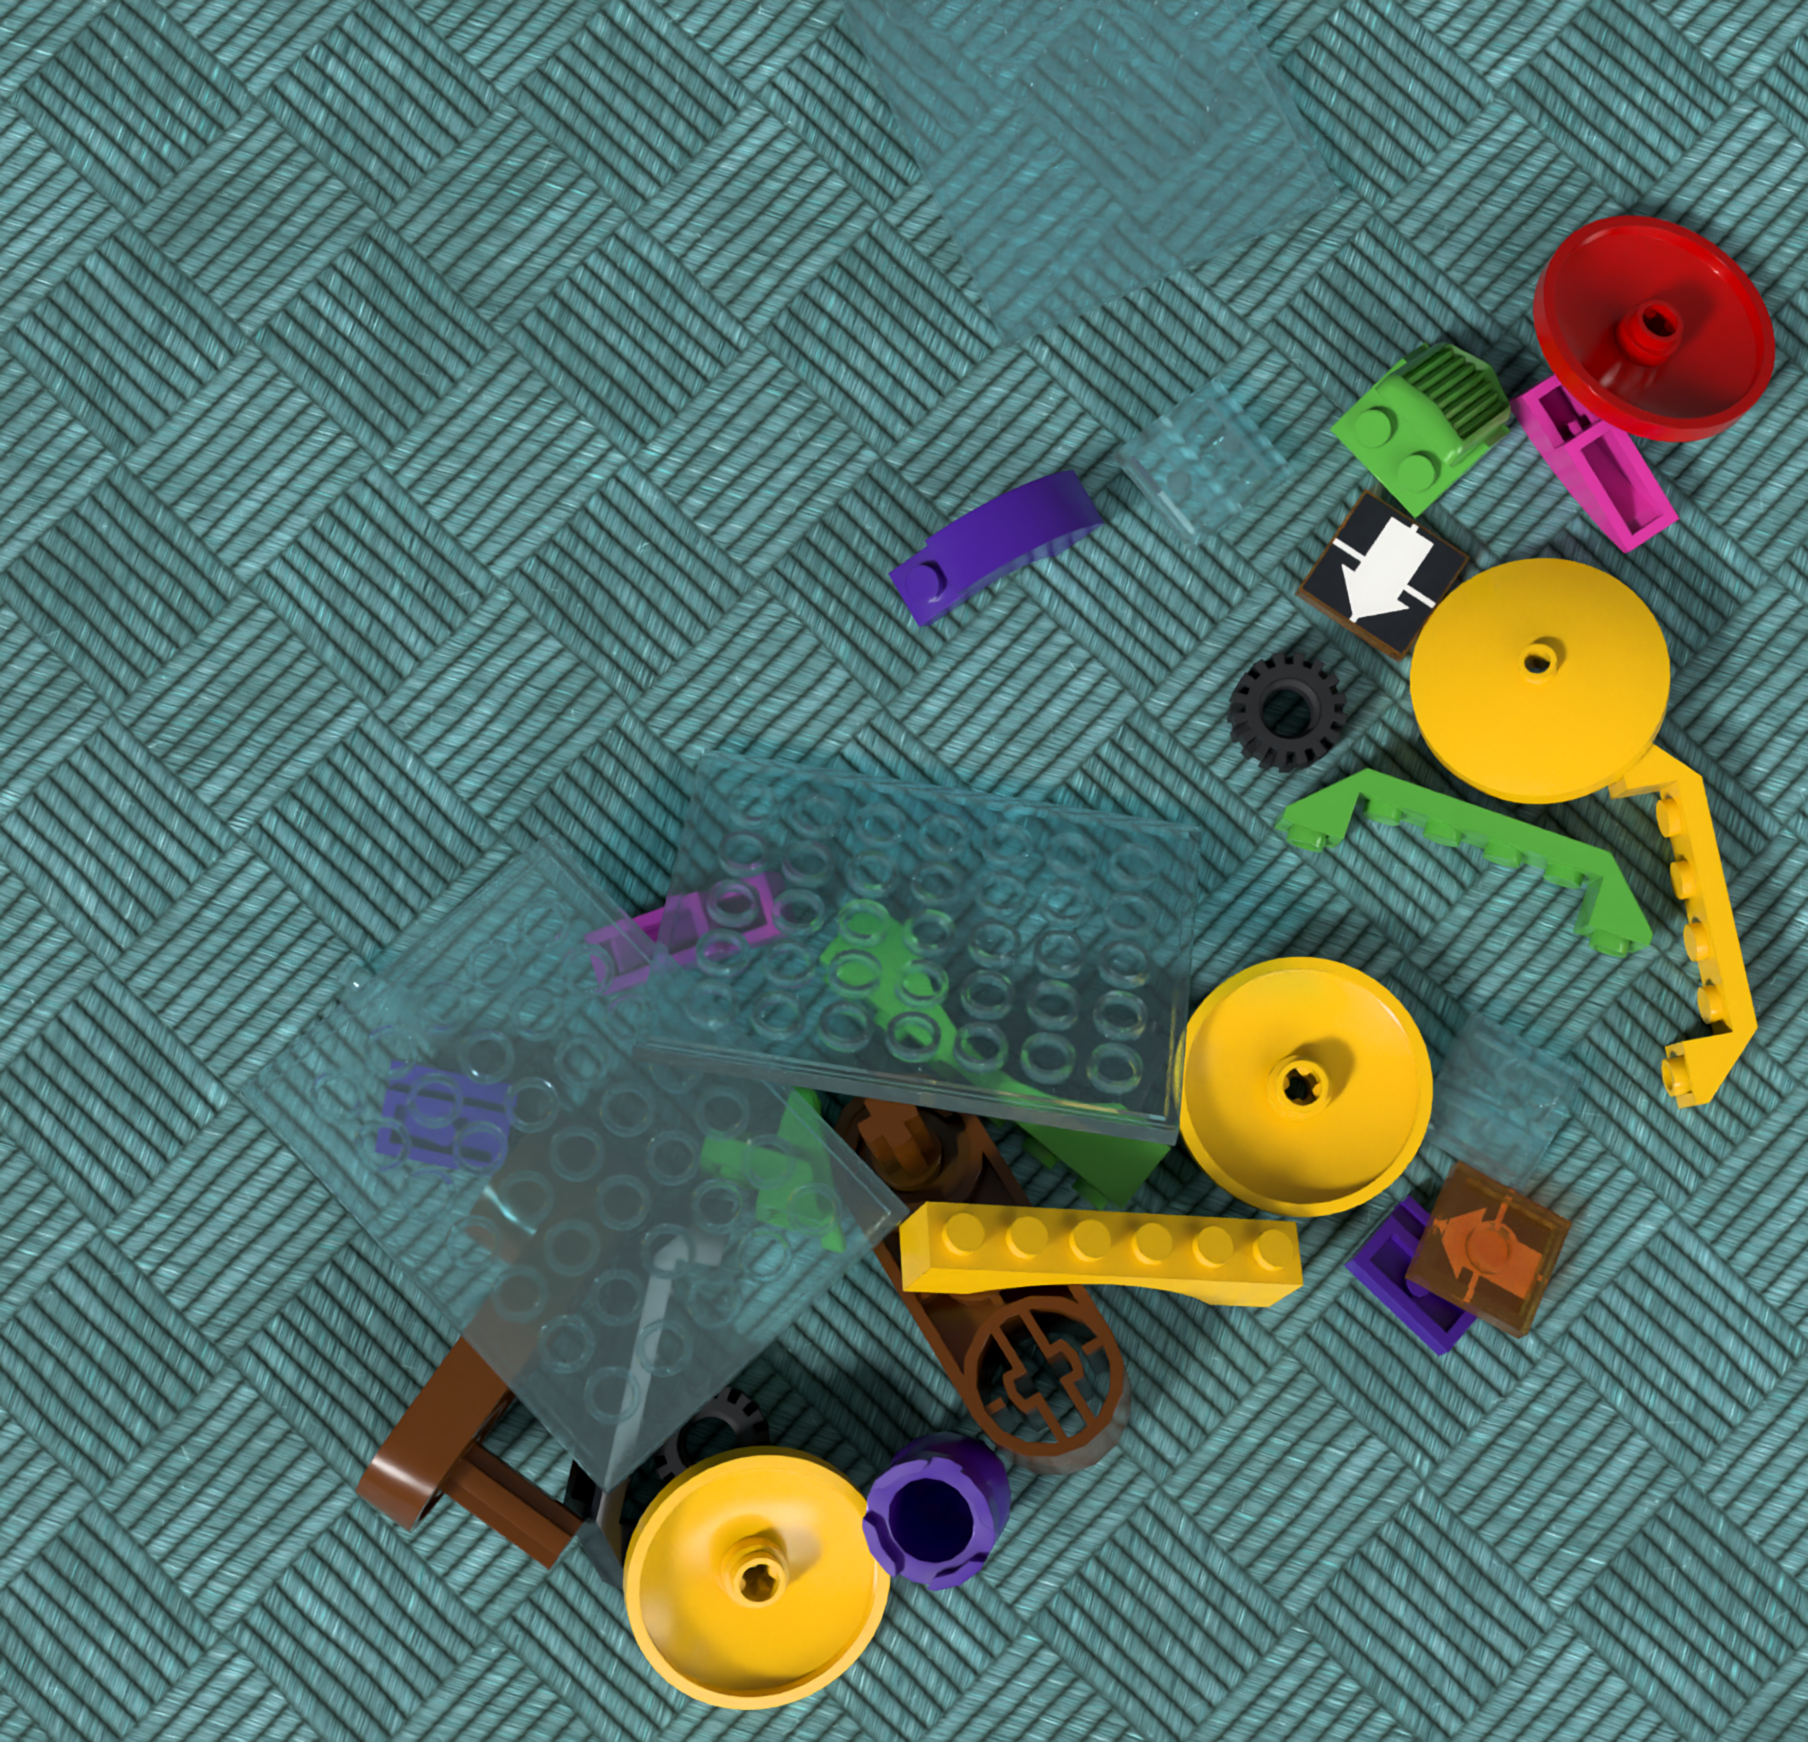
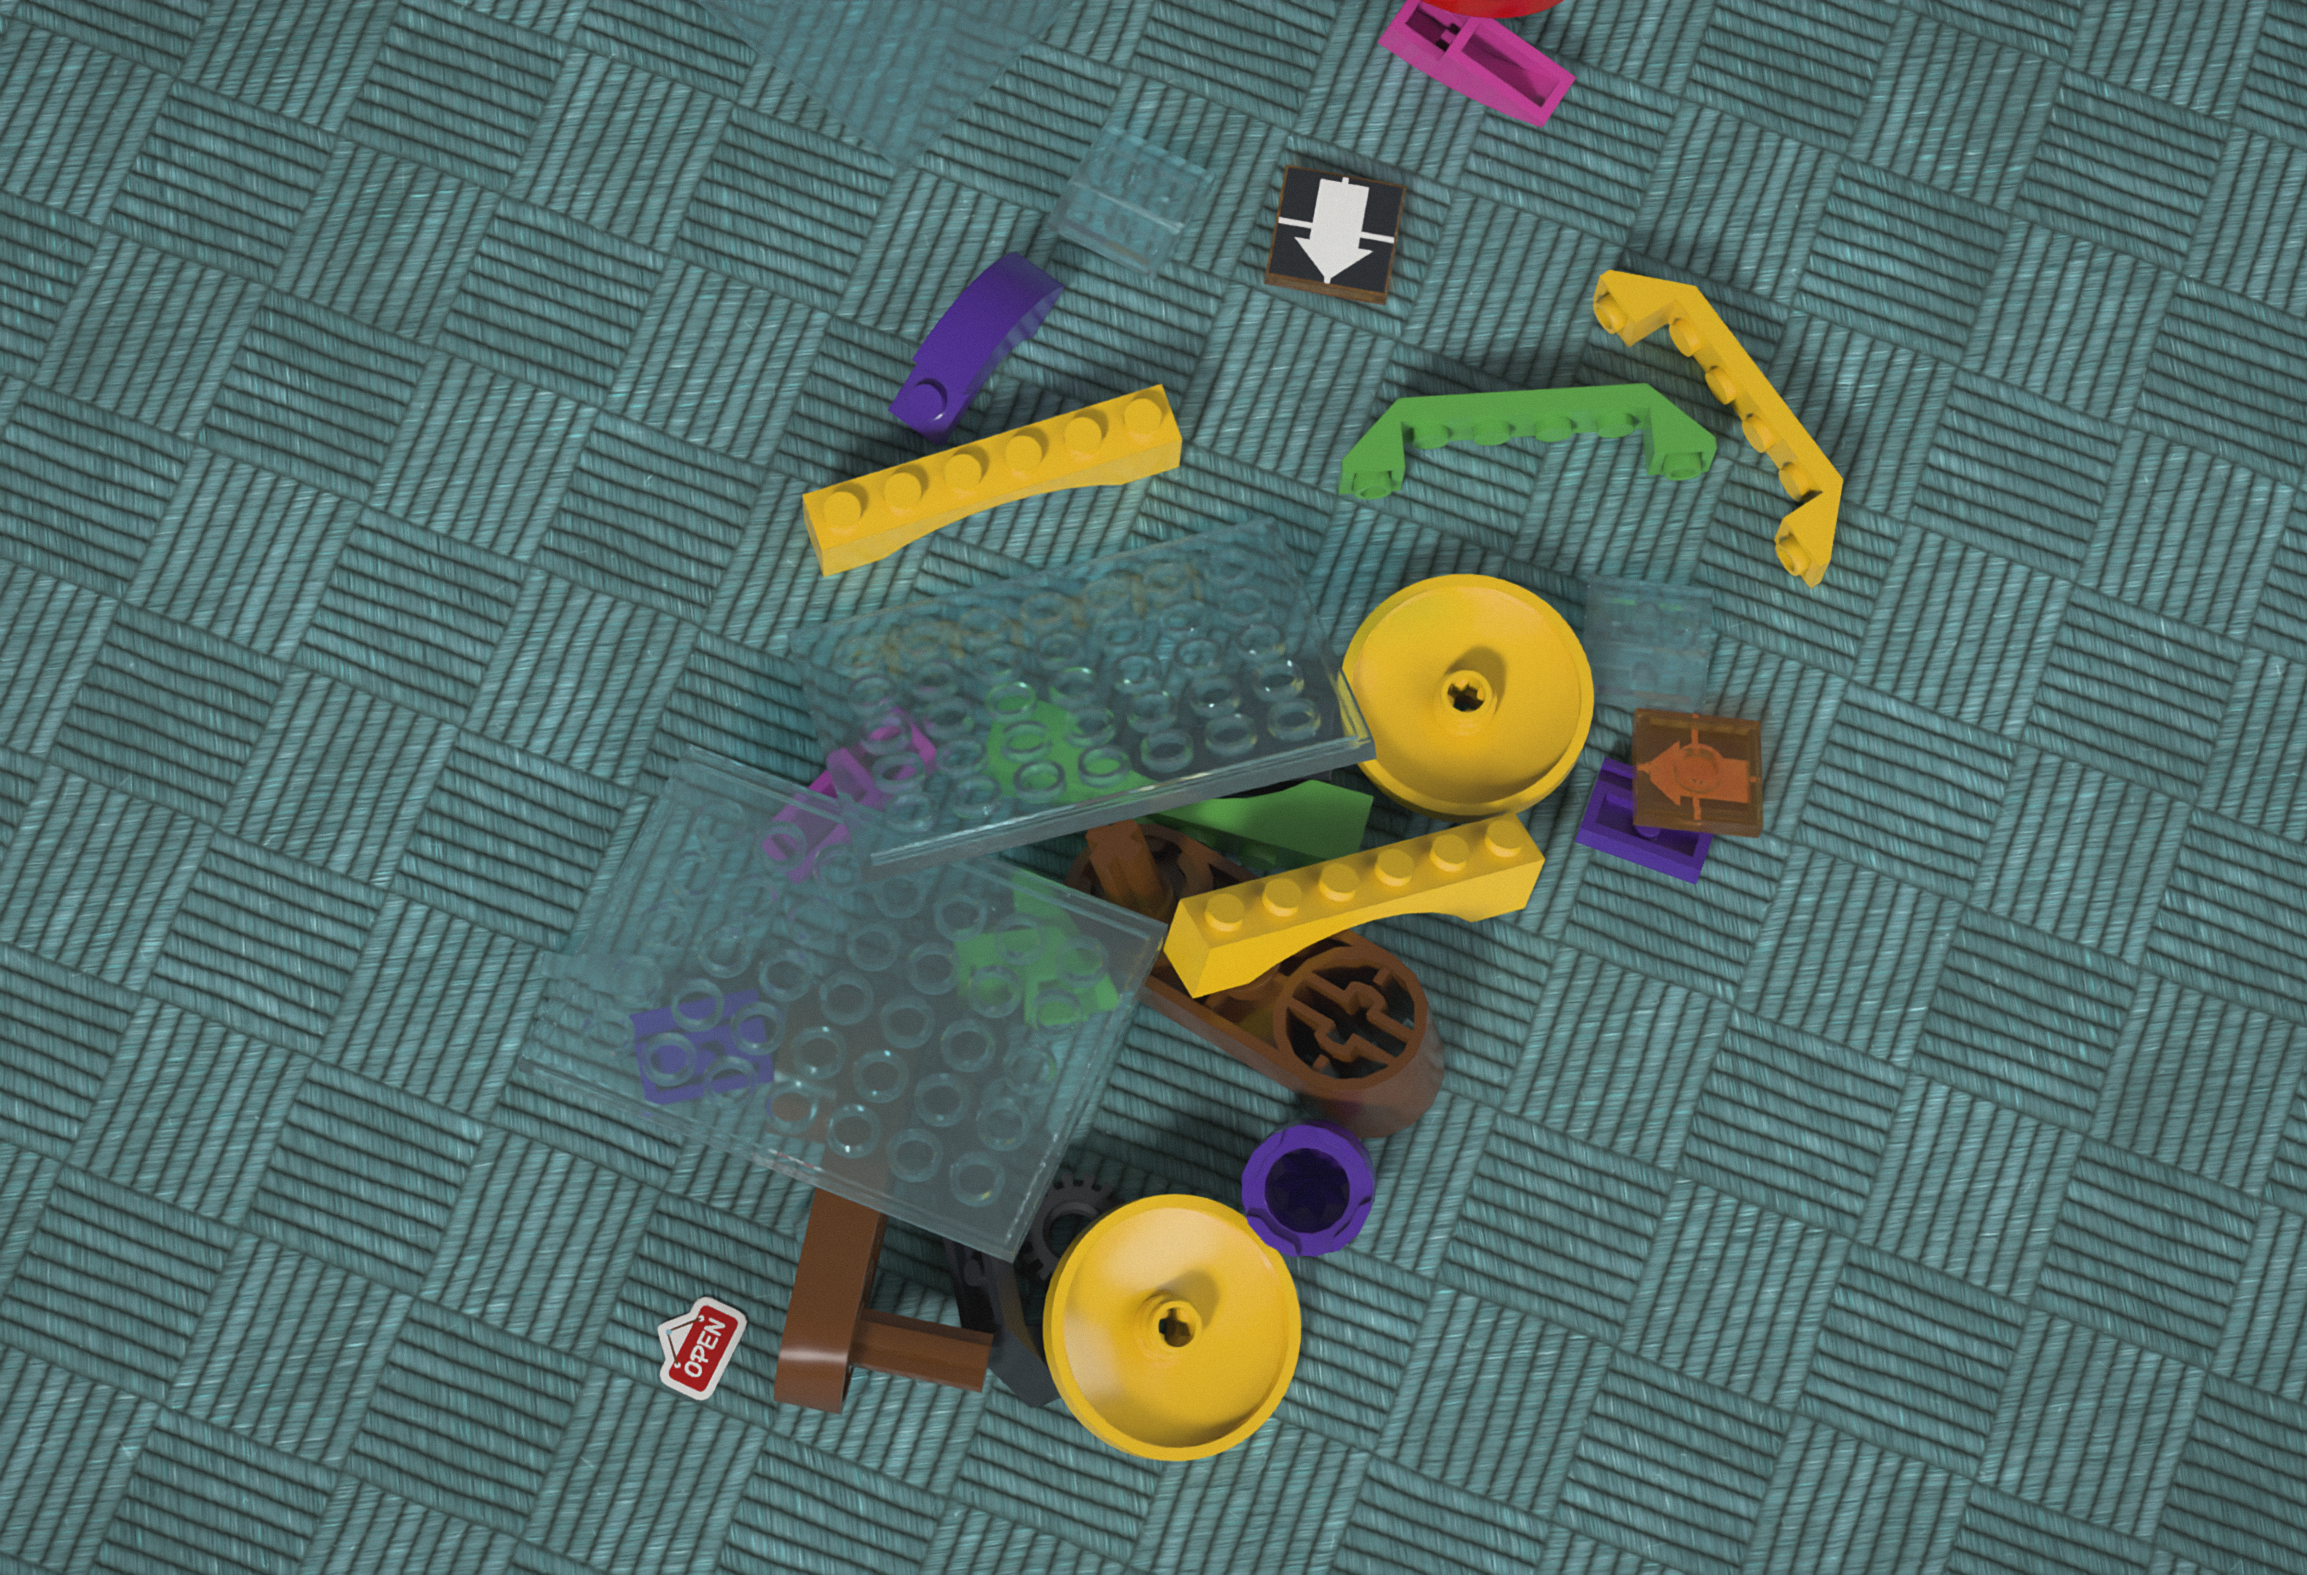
camera: 25 degrees left, 10 degrees down
(331, 1390) = (700, 1347): none -> sticker
(1010, 685) = (1082, 448): none -> yellow arch
(1306, 680) = (1309, 351): black tyre -> none
(1427, 423) = (1315, 86): bright green piece -> none
(1550, 730) = (1516, 264): yellow dish -> none

